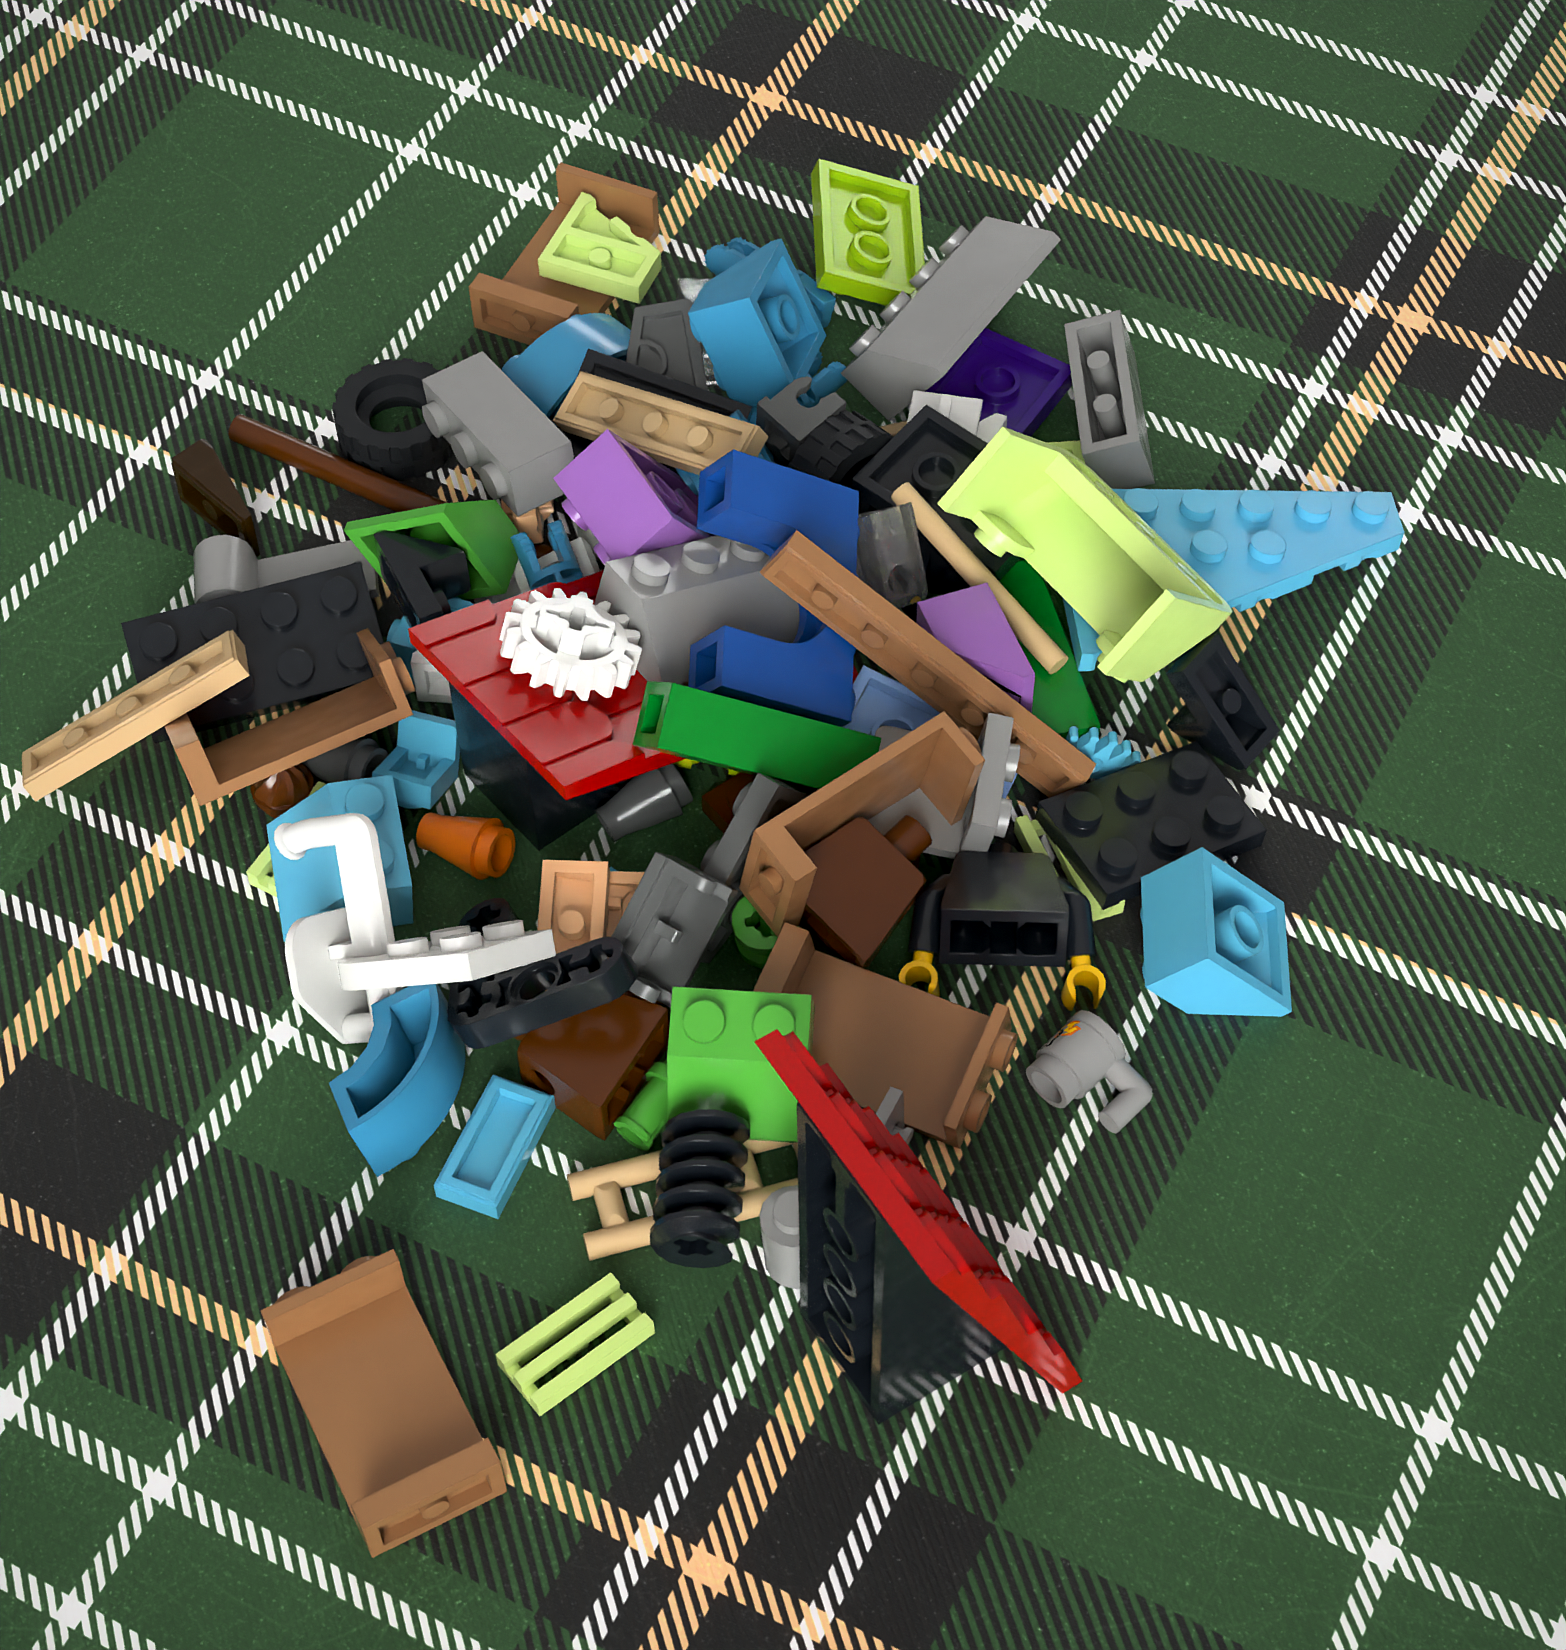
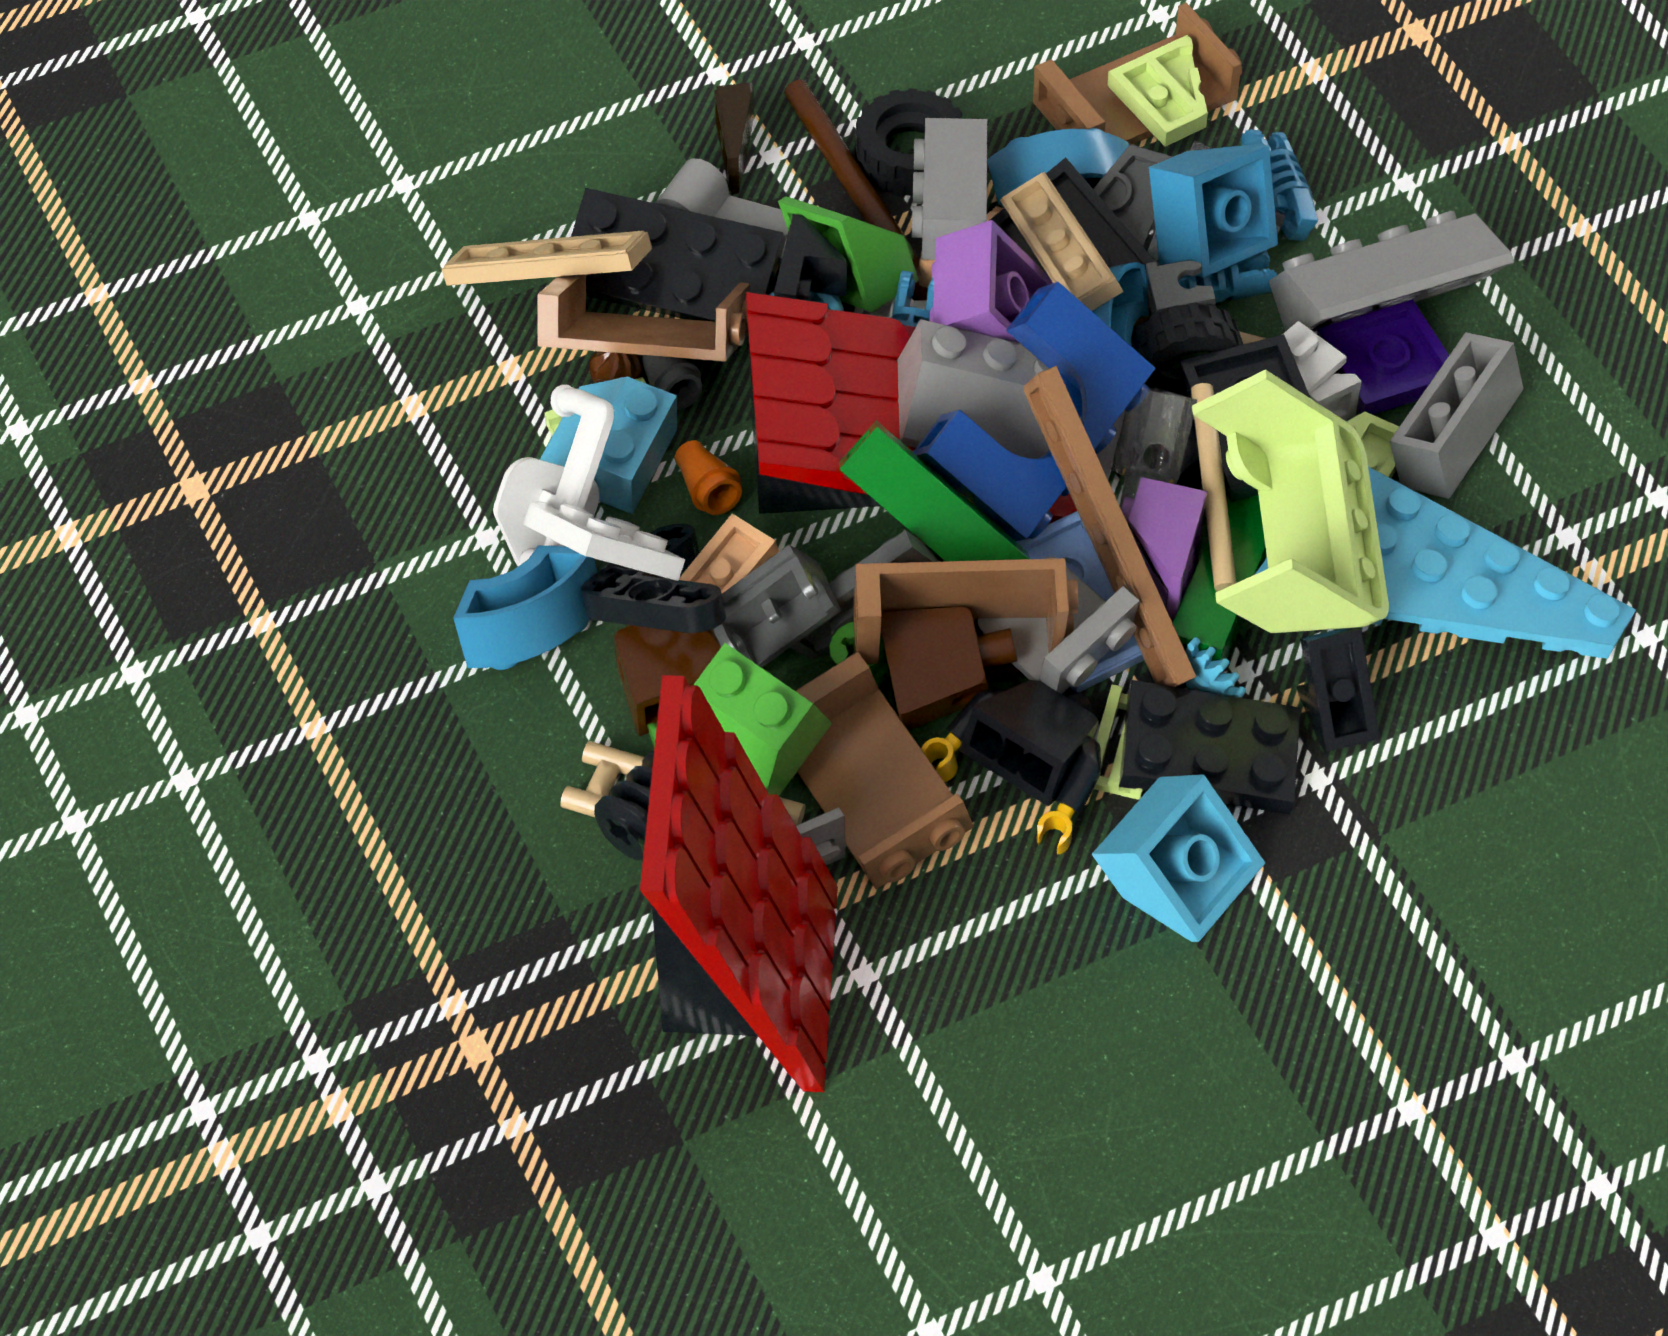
camera: 35 degrees right, 0 degrees up
(382, 1402) = (355, 812): medium nougat panel -> none
(423, 761) = (718, 405): medium azure bracket -> none
(495, 1146) = (561, 695): medium azure tile -> none
(559, 1324) = (506, 845): yellowish green tile -> none
(570, 644) = (851, 365): white gear -> none
(644, 802) = (852, 519): dark grey cone -> none
(865, 233) = (1385, 178): lime plate -> none
(1082, 1057) = (1004, 877): light grey piece -> none

